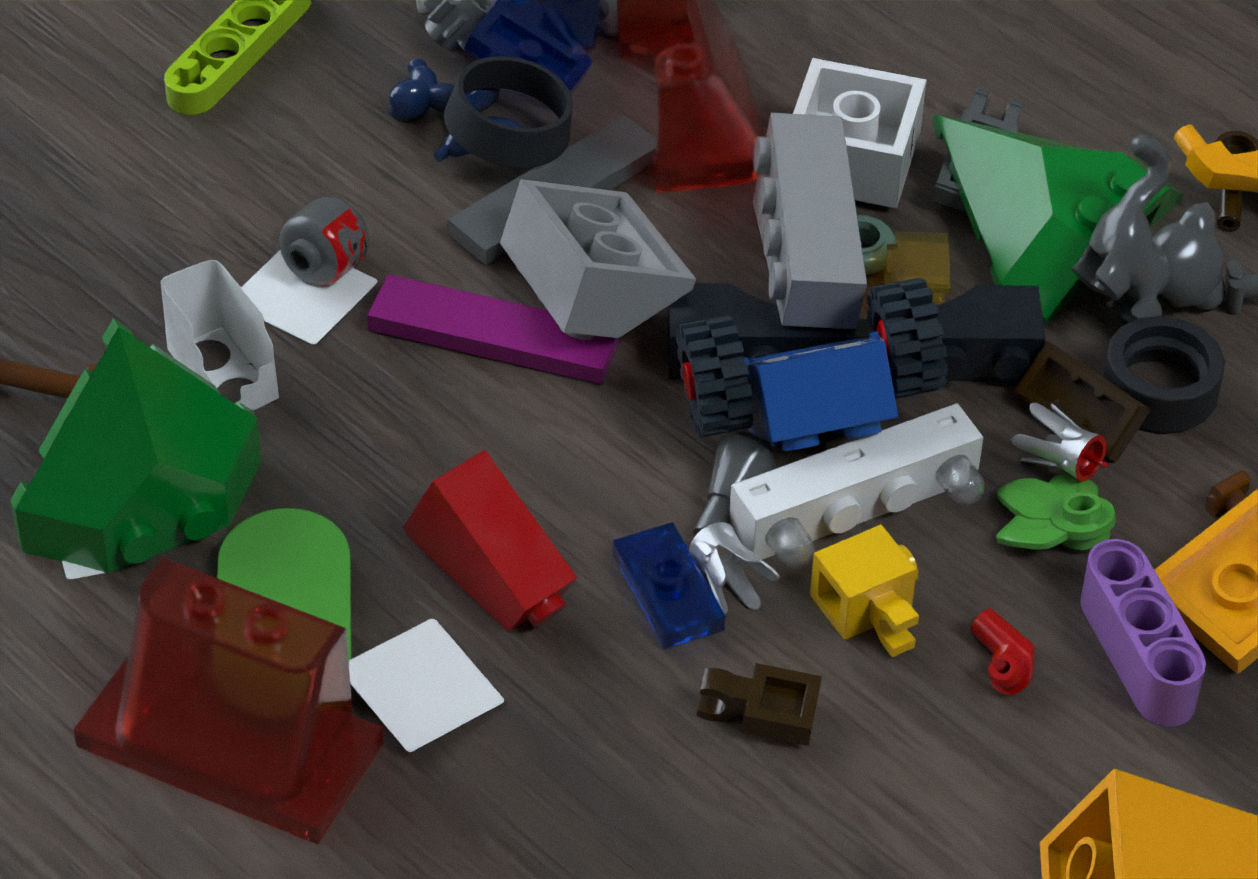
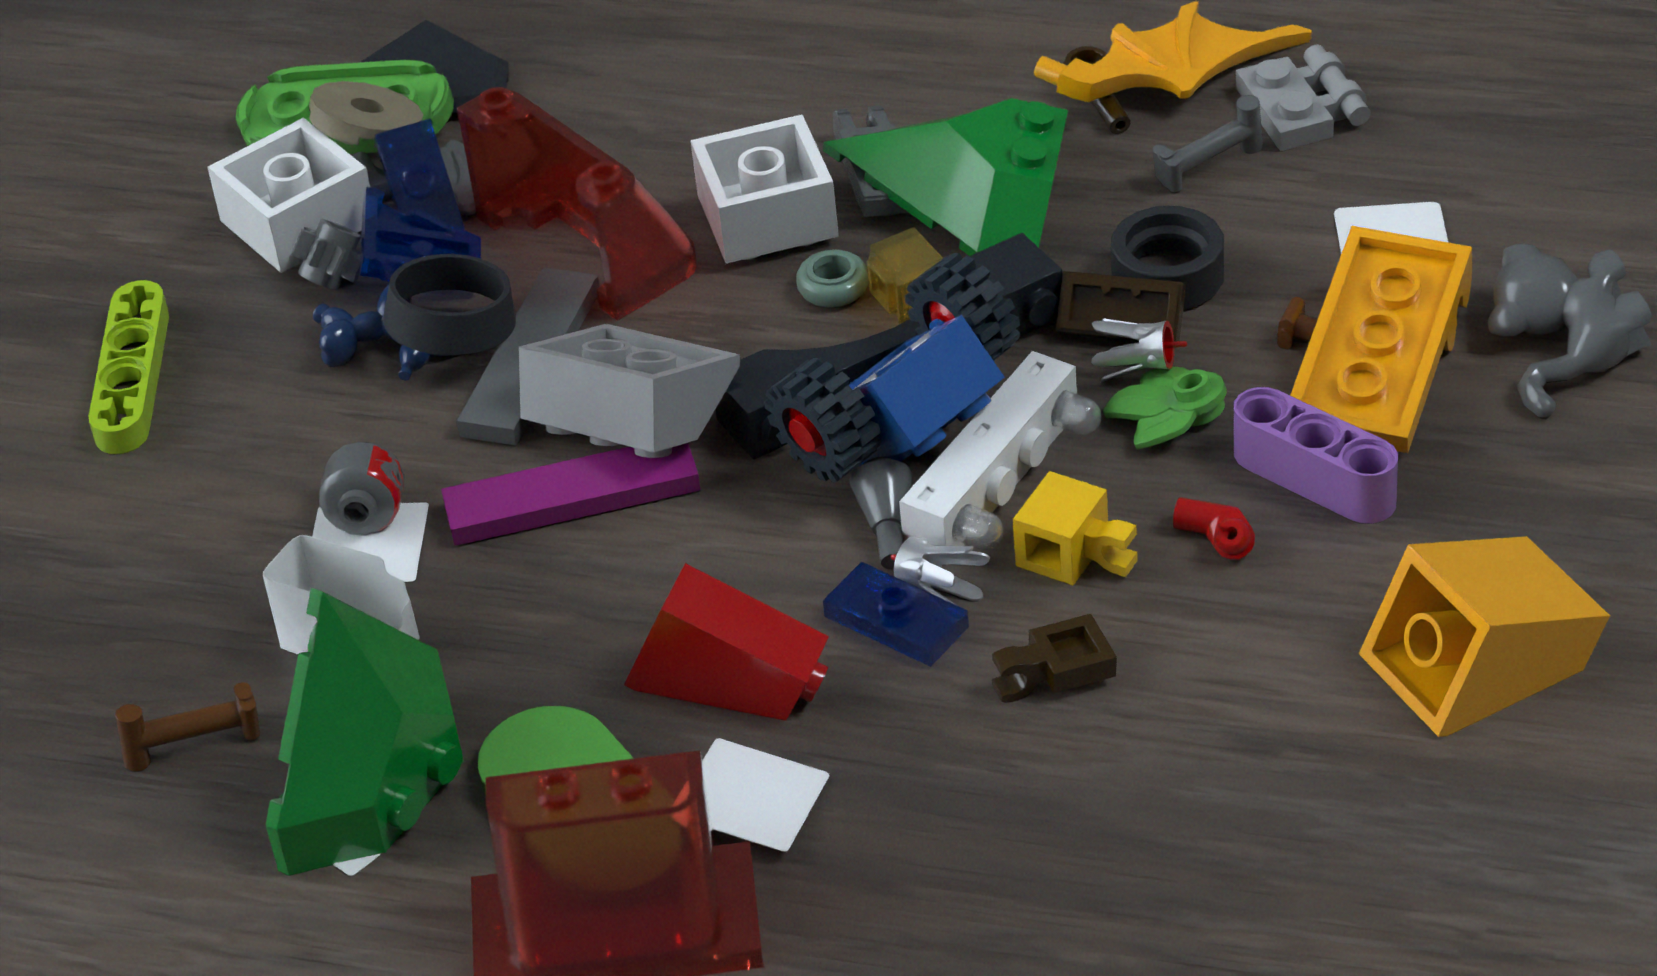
camera: 25 degrees left, 5 degrees down
(809, 221) = (797, 266): light grey wedge -> none
(1132, 268) = (1097, 175): dark grey animal -> none

